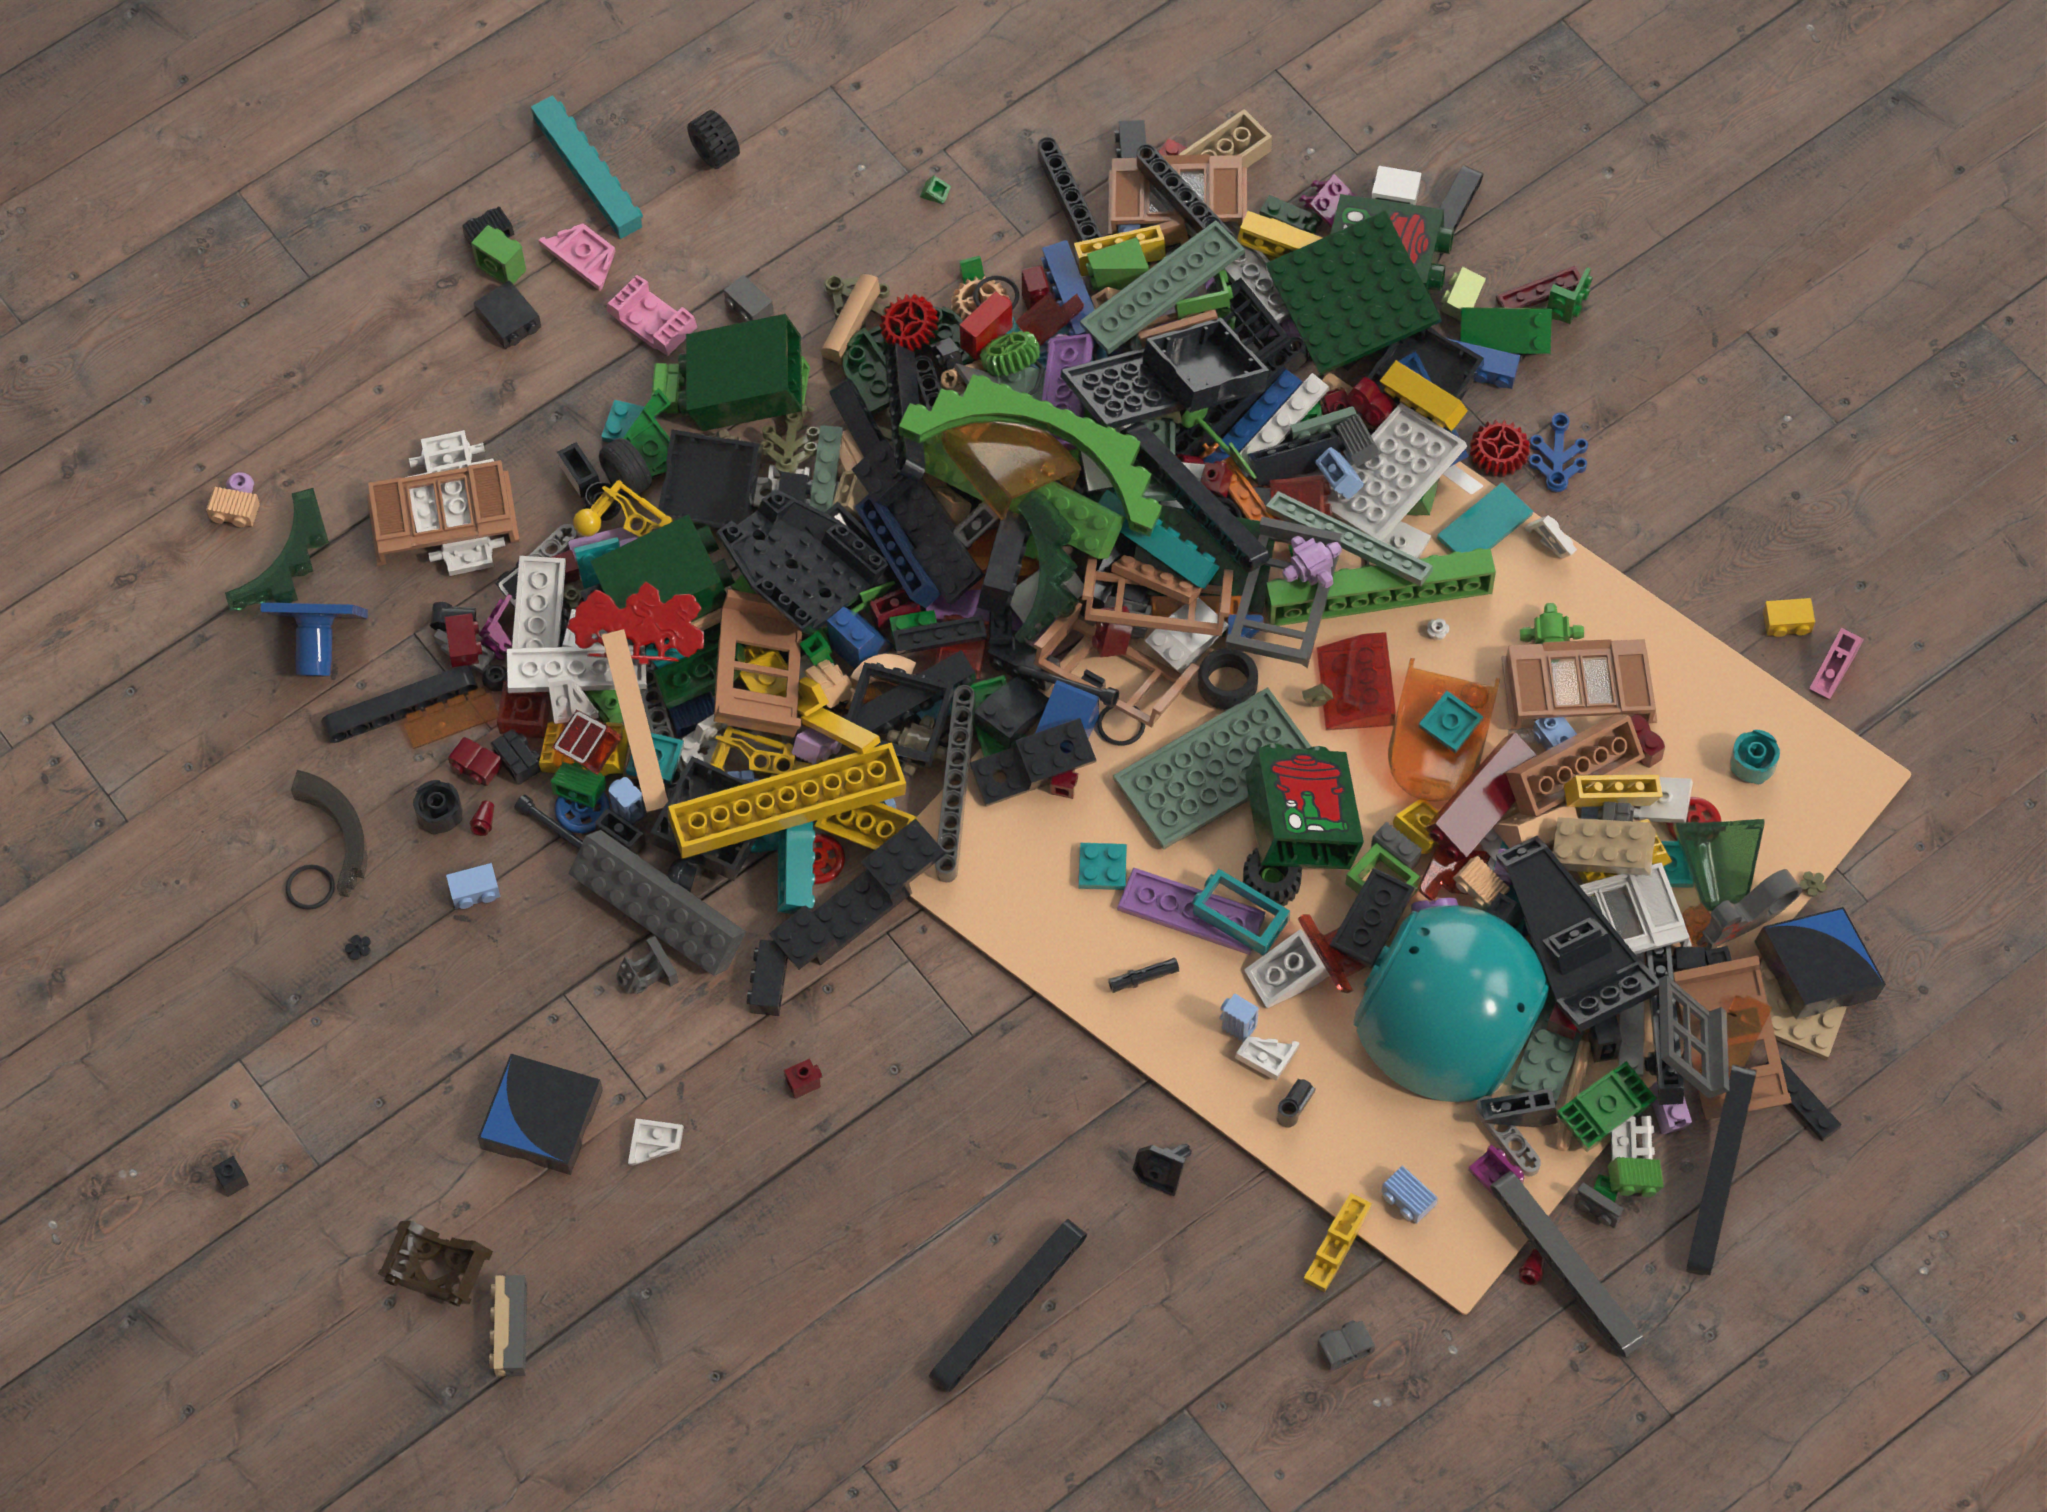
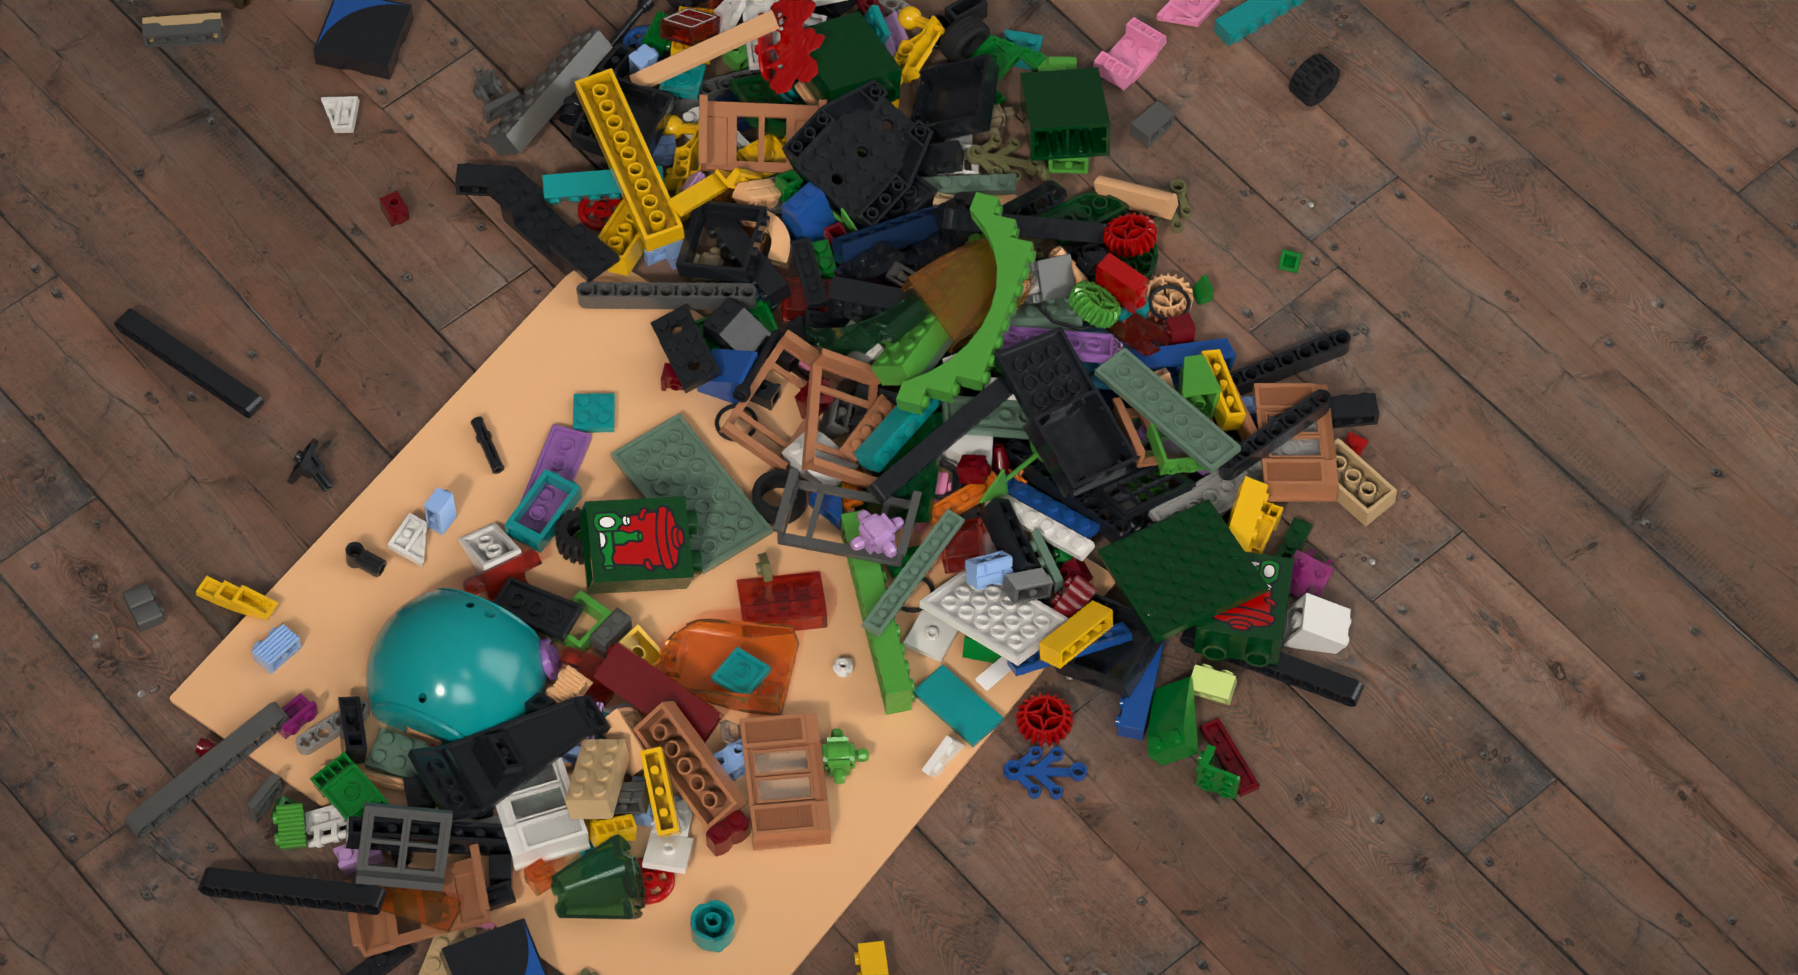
camera: 85 degrees right, 5 degrees down
(1754, 910) = (546, 914): dark grey animal -> none

